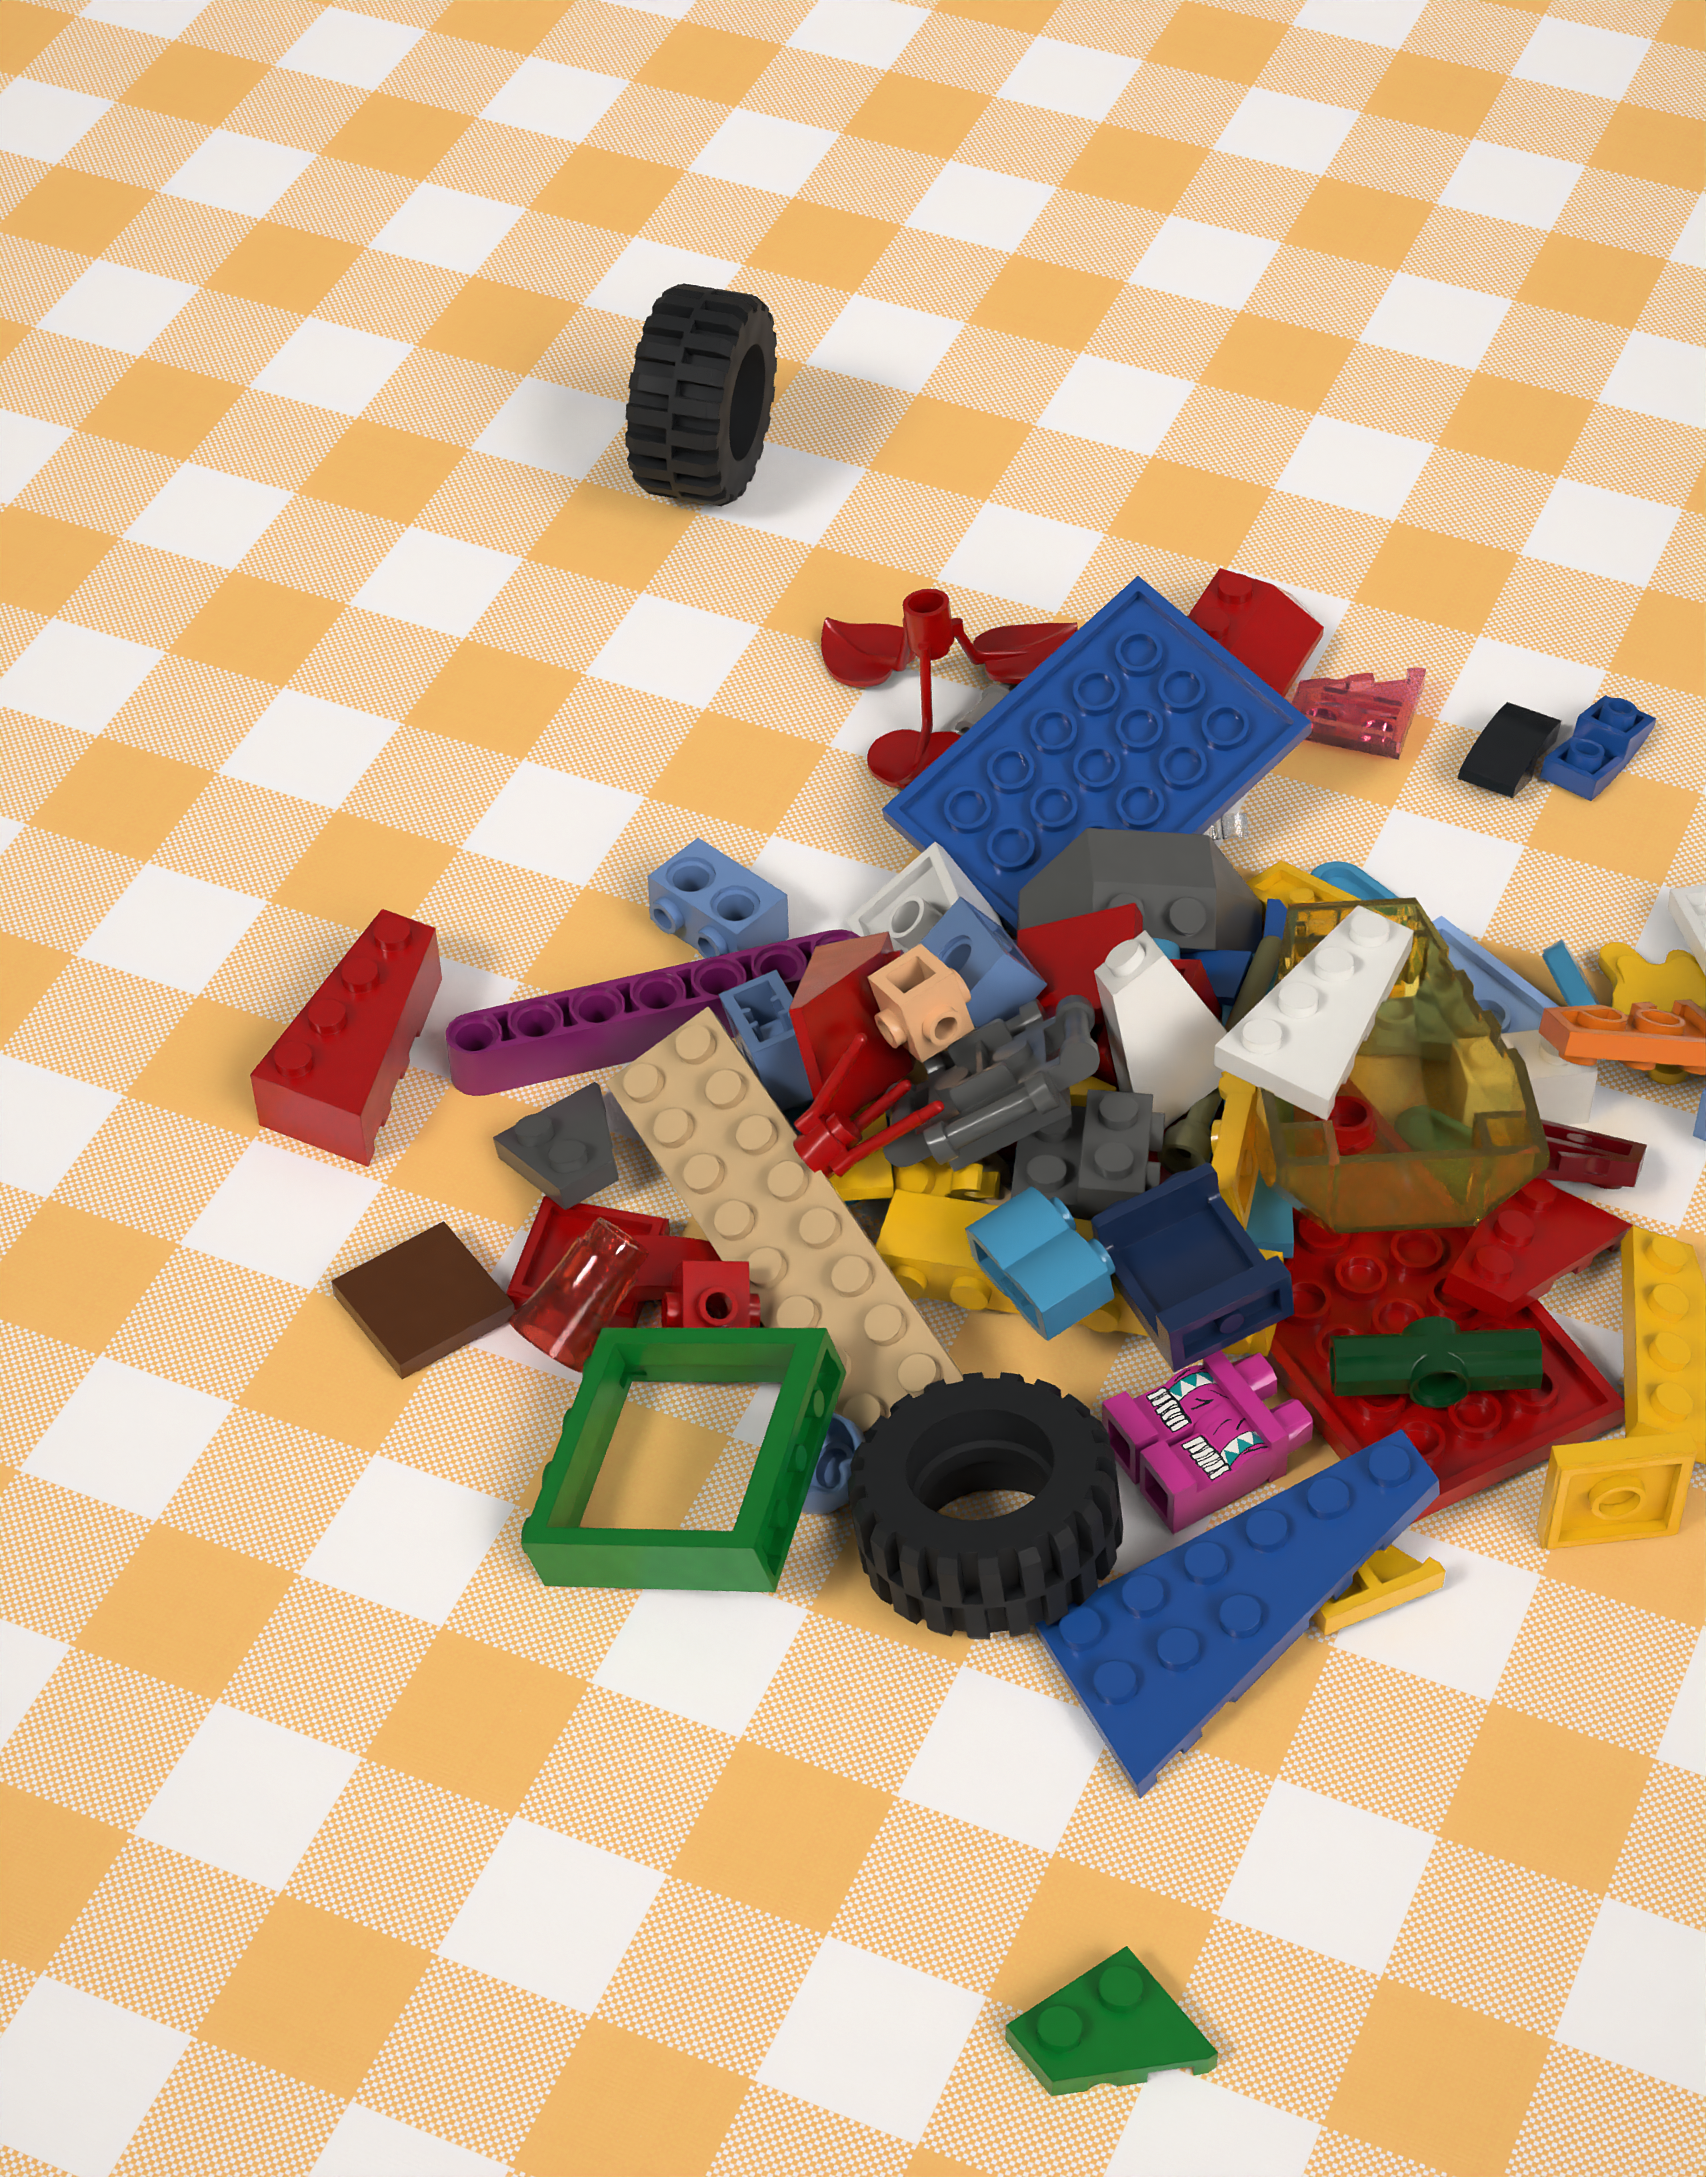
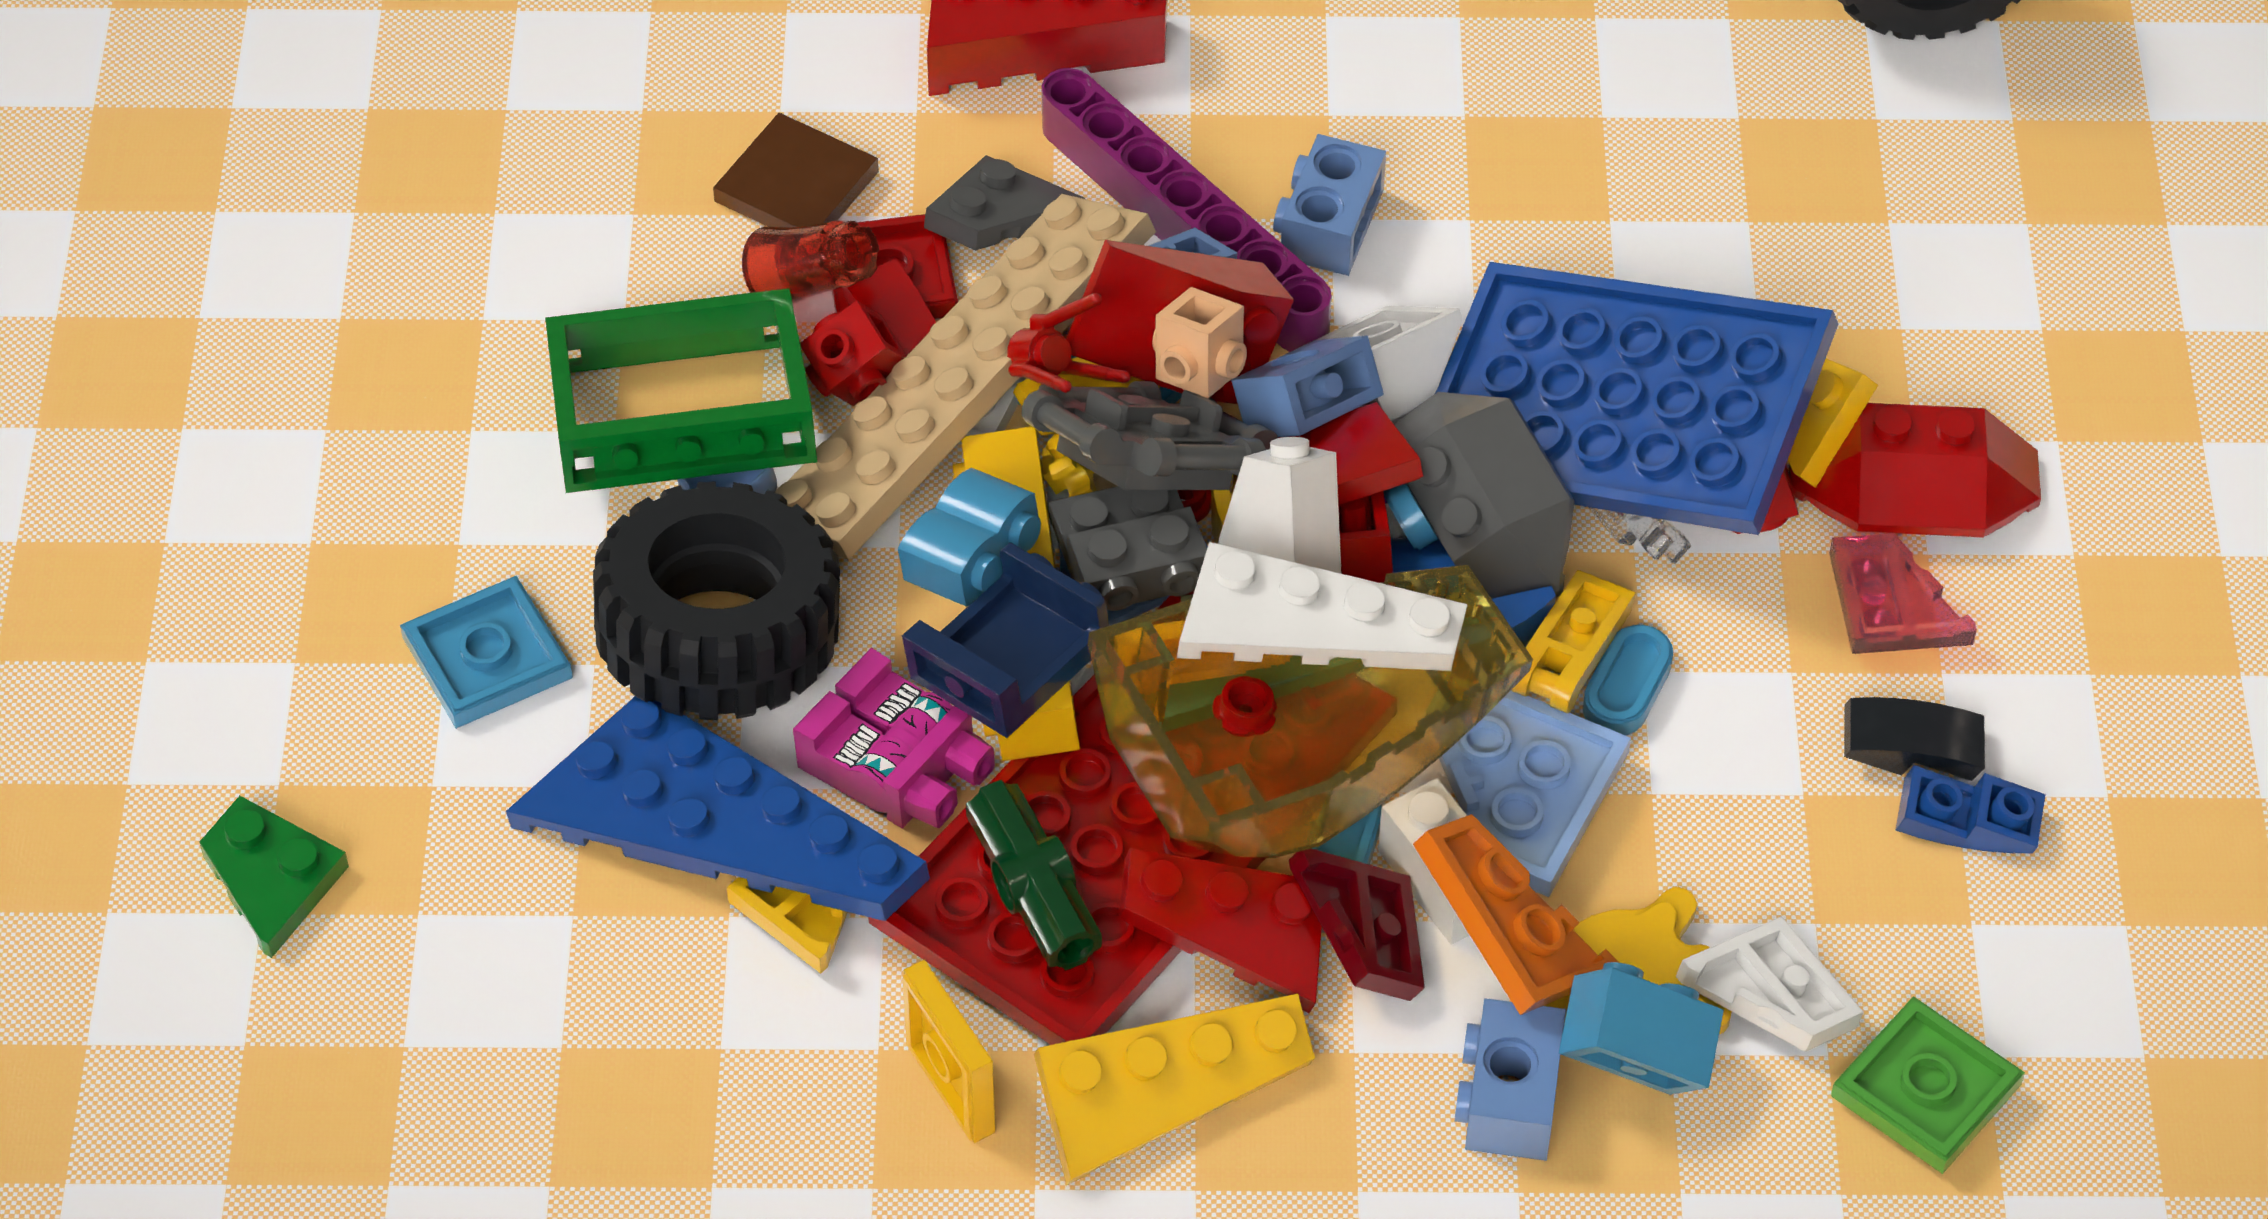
camera: 65 degrees right, 5 degrees up
(871, 651) = (1731, 204): red plant -> none
(907, 1750) = (486, 651): none -> dark azure tile
(1569, 975) = (1598, 874): dark azure tile -> none

